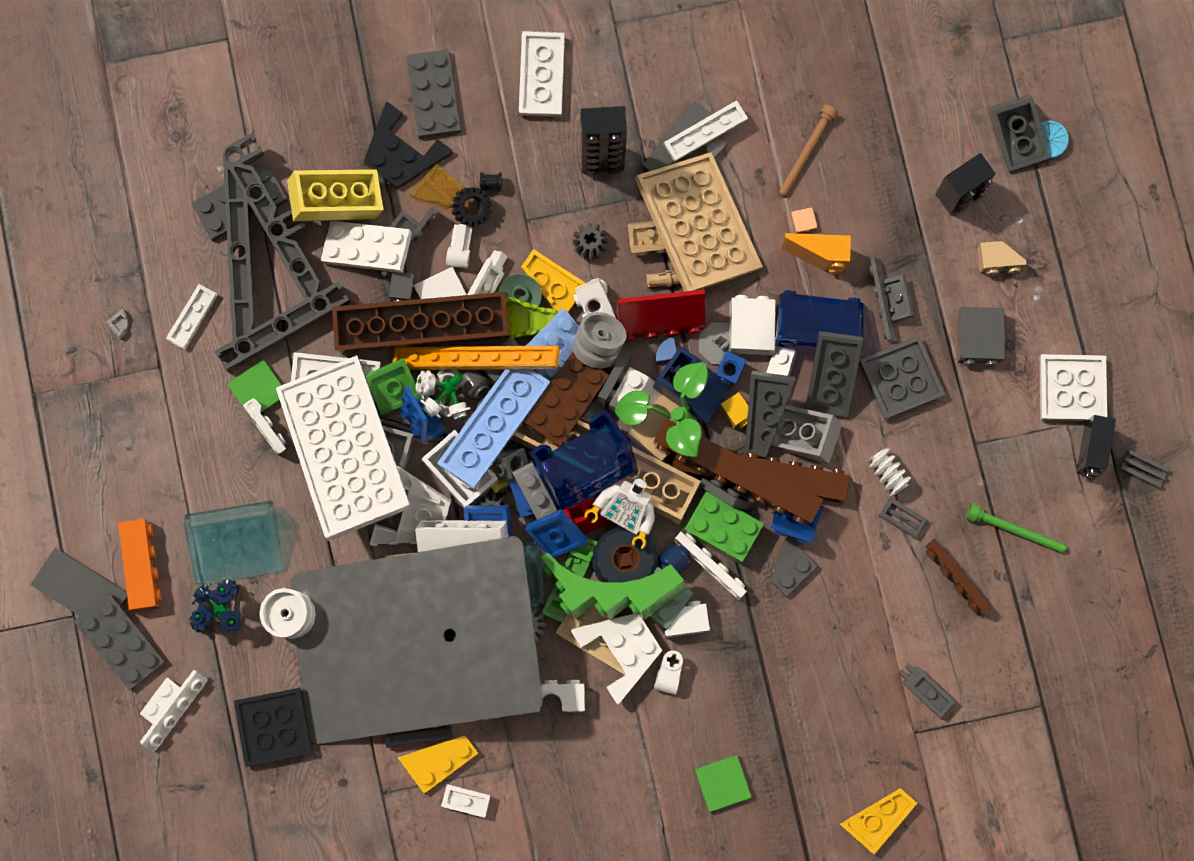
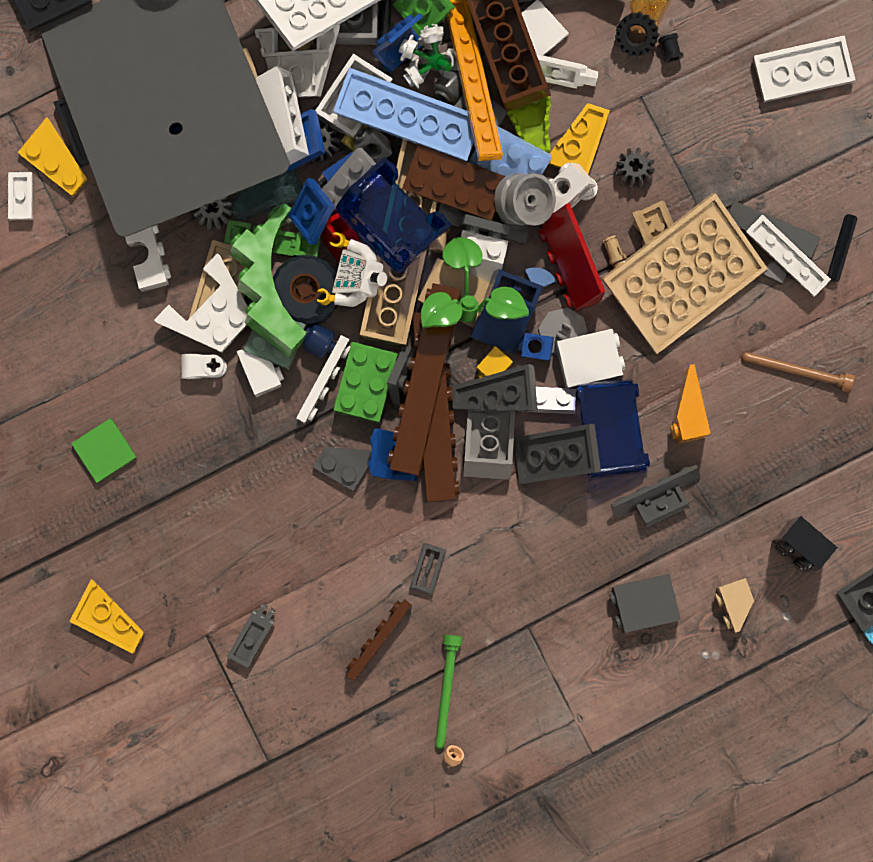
camera: 80 degrees right, 5 degrees up
(459, 253) = (584, 35): white piece -> none
(522, 281) = (561, 99): sand green dish -> none
(603, 139) = (738, 142): black brick -> none
(708, 85) = (842, 247): none -> black axle
(804, 220) = (720, 386): light nougat tile -> none
(889, 471) = (471, 541): white piece -> none
(902, 377) = (577, 530): dark grey plate -> none
(1072, 387) = (616, 715): white plate -> none
(1078, 534) = (456, 751): none -> light nougat hinge
(1095, 446) = (555, 752): black brick -> none
(1164, 470) = (545, 833): dark grey tile -> none

